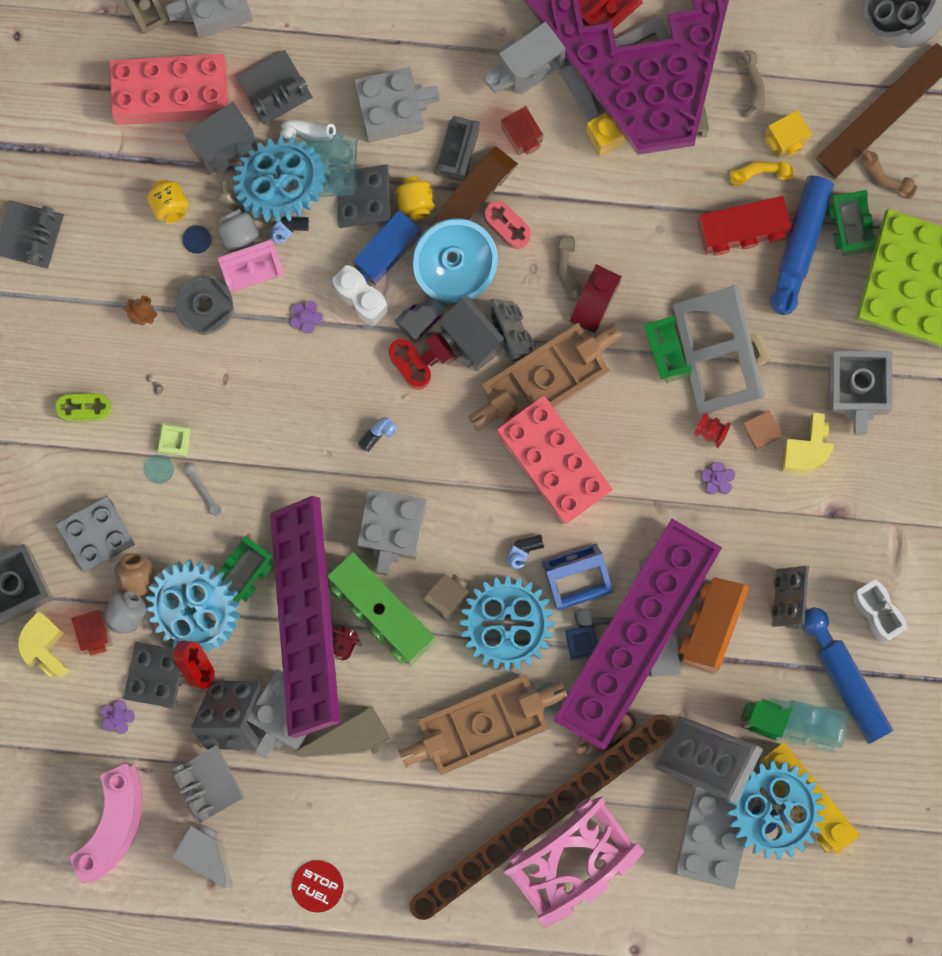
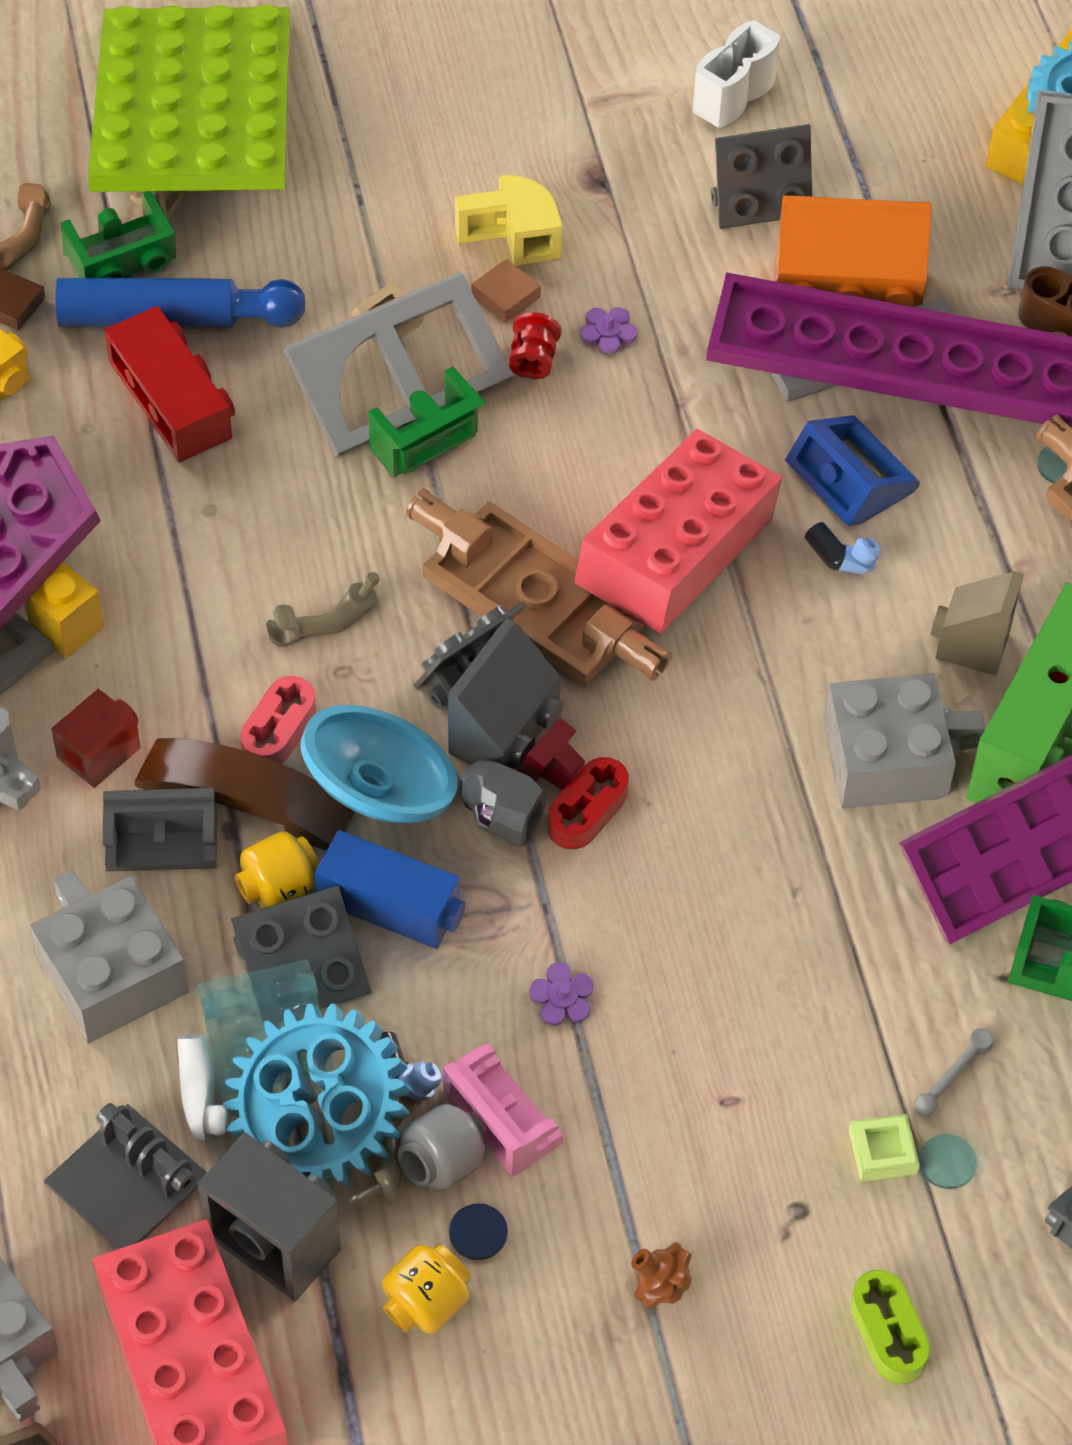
camera: 110 degrees left, 25 degrees down
(205, 289) = (611, 1199): dark grey plate -> none
(354, 291) = (494, 903): white brick -> none
(371, 437) = (729, 818): arm -> none
(507, 596) = (940, 533): medium azure gear -> none
(581, 641) = (955, 439): dark blue tile -> none
(584, 618) = (914, 441): dark grey hand -> none
(595, 298) = (363, 542): dark red slope -> none
(743, 174) = (77, 414): yellow piece -> none
(765, 718) = (965, 157): green window -> none
(816, 725) = (942, 117): clear light blue brick -> none
(847, 678) = (869, 84): blue piece -> none
(860, 386) = (390, 171): light grey hinge -> none

